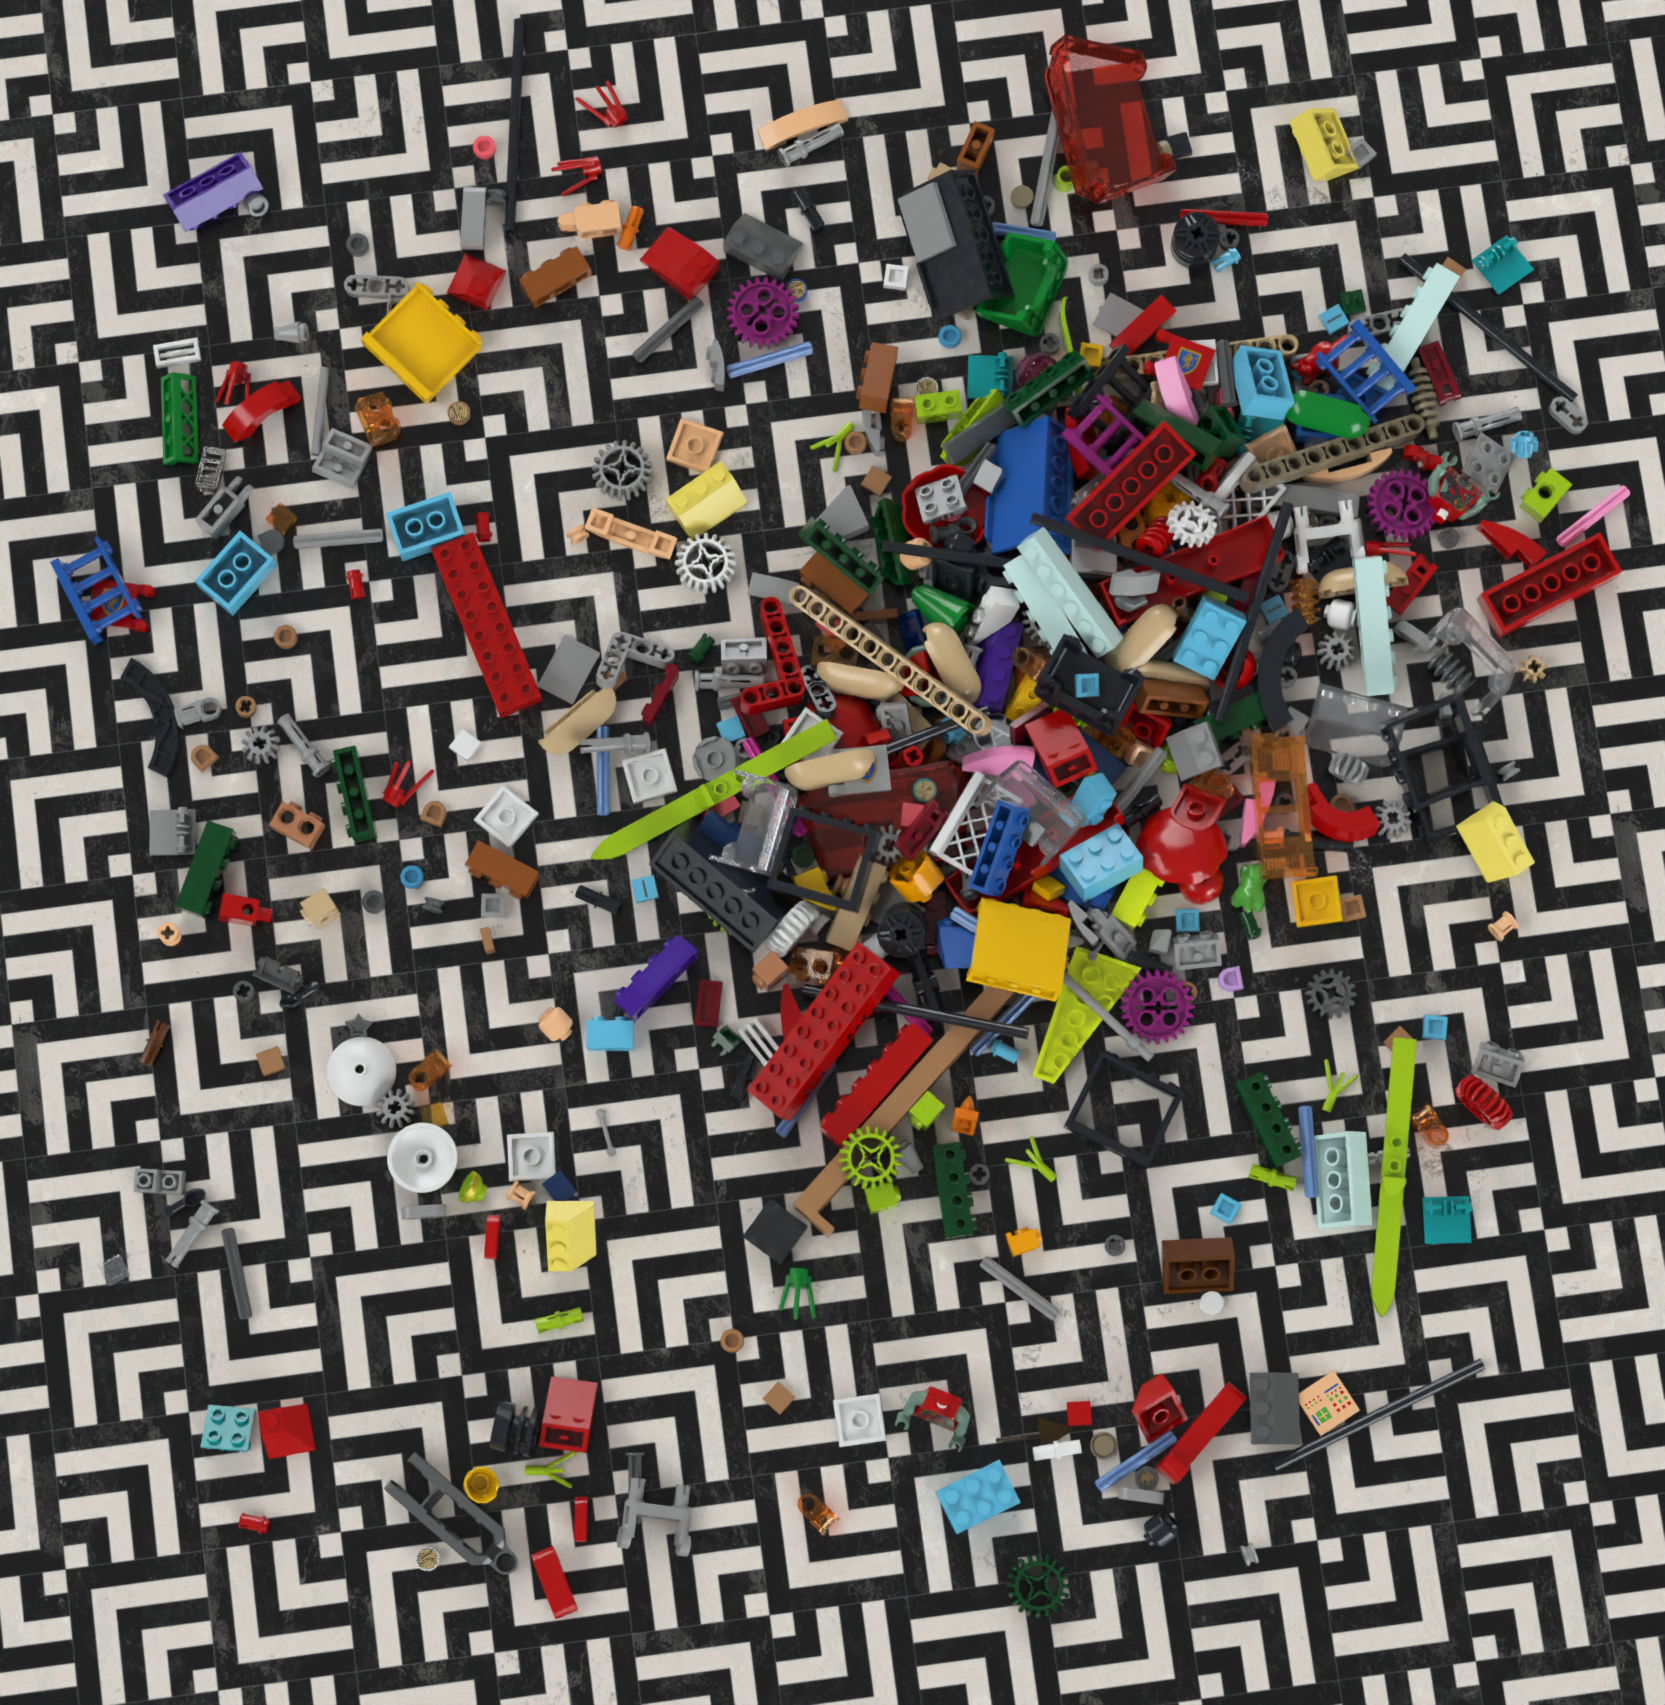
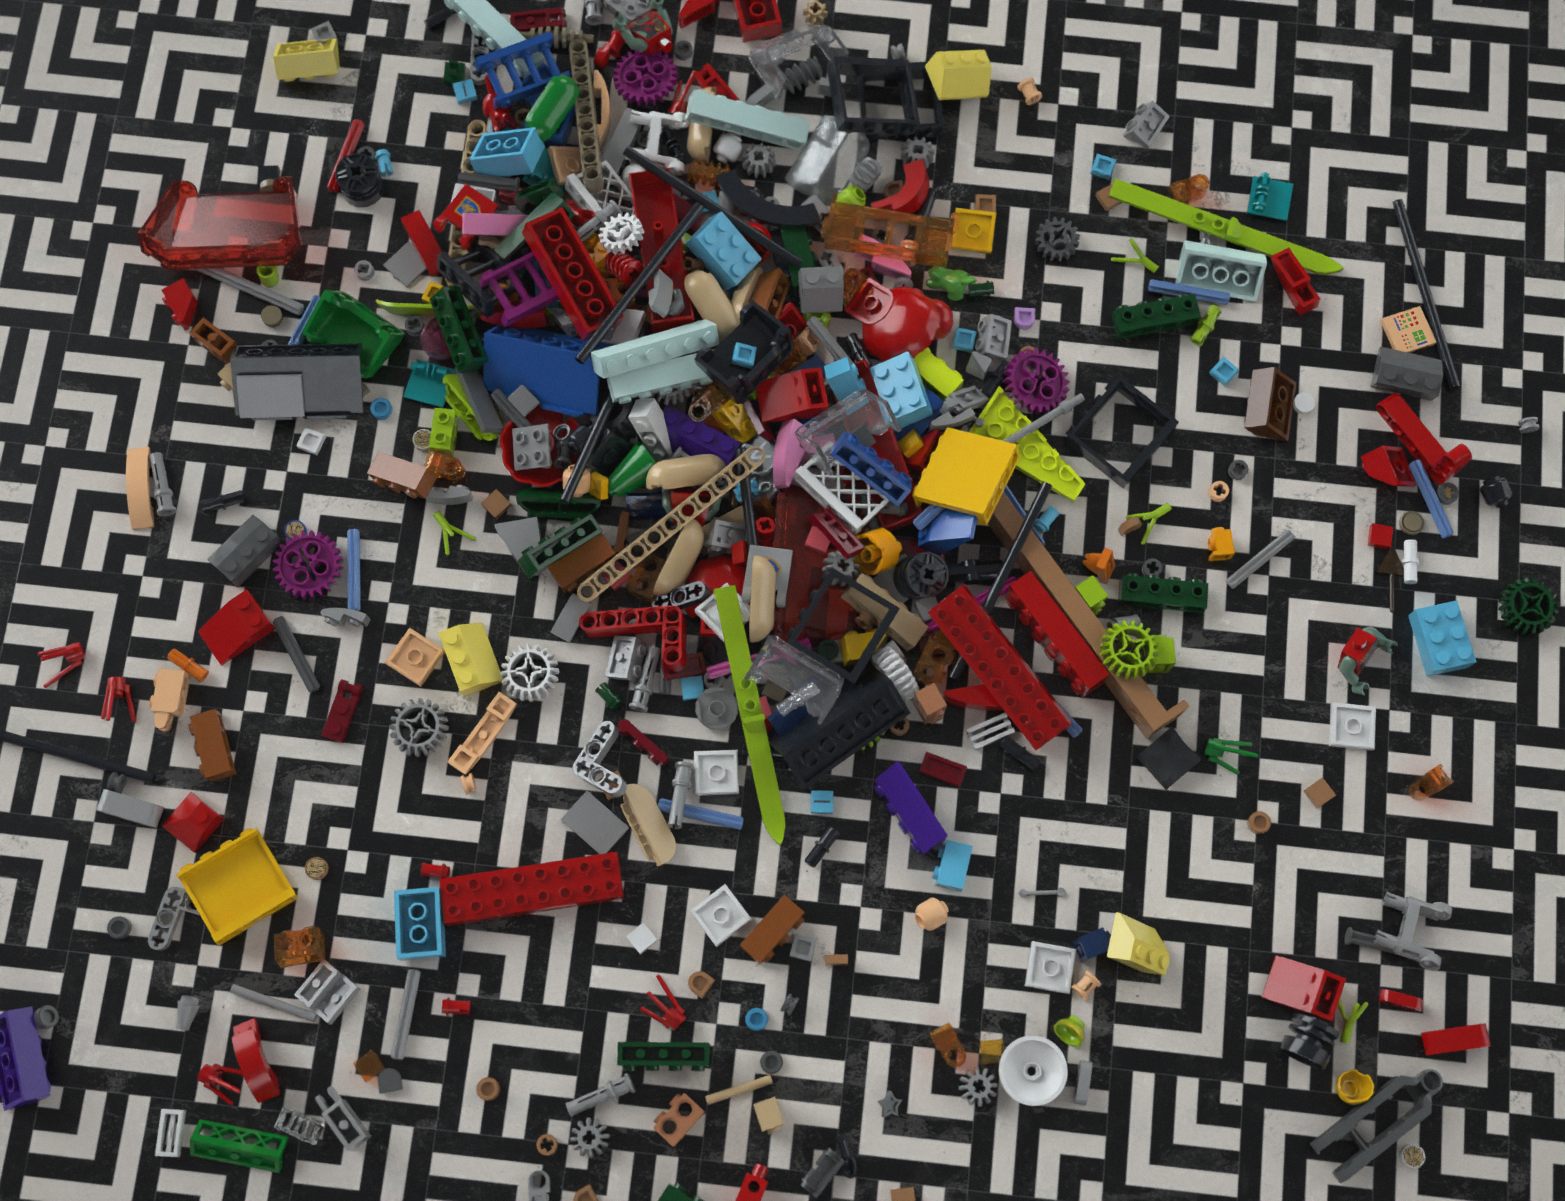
camera: 75 degrees left, 5 degrees down
(236, 573) = (412, 1122): medium azure brick -> none
(340, 877) = (739, 1089): none -> tan bar
(369, 1085) = (916, 1117): white dish -> none
(484, 147) = (63, 783): coral tile -> none
(492, 1237) = (1120, 1022): red beam -> none
(559, 1320) = (1210, 977): lime pin -> none
(621, 391) = (342, 711): none -> dark red plate
(726, 1039) = (981, 759): dark green tile -> none
(735, 832) = (798, 698): none -> clear pin
(743, 955) = (905, 728): none -> medium nougat bush
(855, 443) = (454, 513): medium nougat tile -> none
(917, 578) = (599, 486): none -> yellow tile
(924, 789) = (799, 522): tile -> none
(1011, 102) = (182, 302): none -> red slope
(1020, 1141) = (1129, 526): none -> medium nougat tile
(1089, 1234) = (1224, 489): none -> light nougat bush
(1141, 1495) = (1463, 501): light grey beam -> none
(1316, 760) = (852, 195): none -> lime head
(1351, 1265) = (1295, 281): none -> red slope
(1484, 1102) = (1180, 140): red gear -> none

